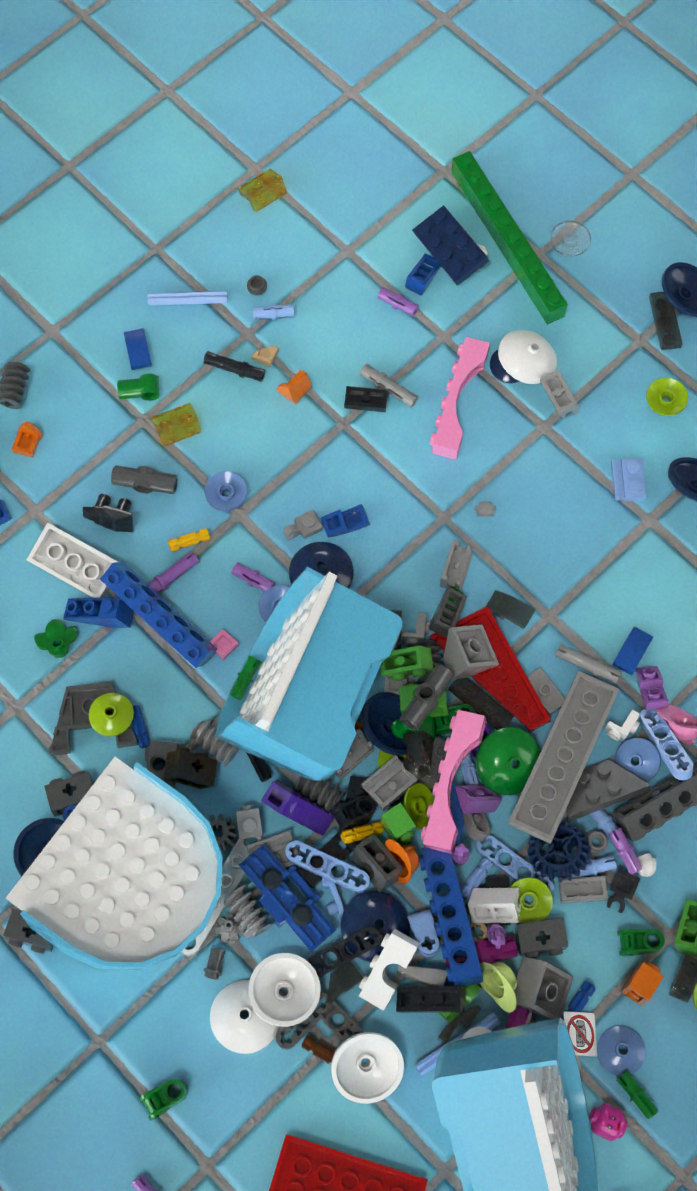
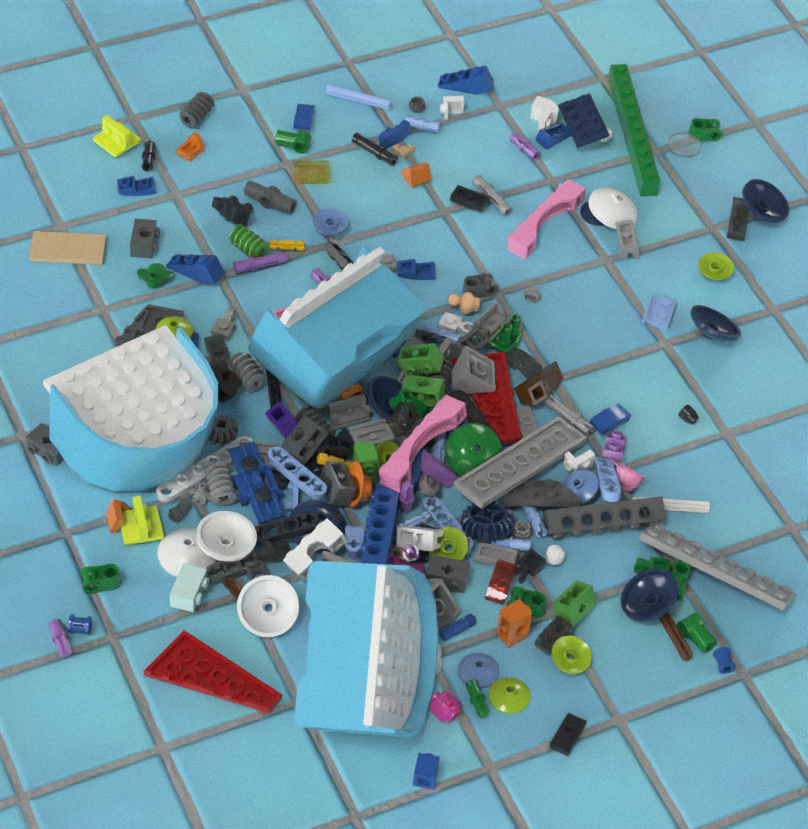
camera: 15 degrees right, 20 degrees down
(17, 583) = (143, 238): none -> dark grey brick
(71, 561) = (192, 230): white slope -> none
(145, 556) = (248, 241): none -> bright green piece
(145, 1001) = (115, 516): none -> orange tile
(158, 614) = (239, 274): blue brick -> none
(163, 683) = (225, 326): none -> light grey plate
(166, 1171) = (85, 624): none -> blue bush
(170, 721) = (216, 347): none -> clear smoke slope
(178, 1001) = (141, 523): none -> neon yellow bracket
(249, 340) = (393, 136): none -> blue slope
(249, 822) = (249, 428): light grey bracket -> none
(263, 189) = (451, 47): clear yellow bracket -> none
(263, 541) = (338, 254): none -> plate
(268, 1074) = (189, 587): none -> light aqua brick
(296, 273) = (451, 105): none -> white bracket
(301, 232) = (470, 81): none -> blue slope
(328, 813) = (304, 439): none -> dark grey brick
(403, 245) = (544, 111): none -> white brick
(408, 603) = (441, 334): none -> light blue pin
(412, 582) = (454, 324): none -> white plate
(418, 548) = (466, 302): none -> light nougat animal
(419, 707) = (425, 380): dark grey piece -> none
(426, 517) = (479, 285): none -> dark grey piece
(480, 580) = (508, 335): none -> green connector
(543, 637) = (539, 385): none -> reddish brown slope
(582, 1032) = (450, 644): sticker -> none
(585, 208) = (705, 128): none -> green piece
(602, 924) = (500, 582): none -> clear red slope
(625, 851) = (541, 535): medium lavender axle -> none
(654, 1073) = (509, 702): none -> lime dish

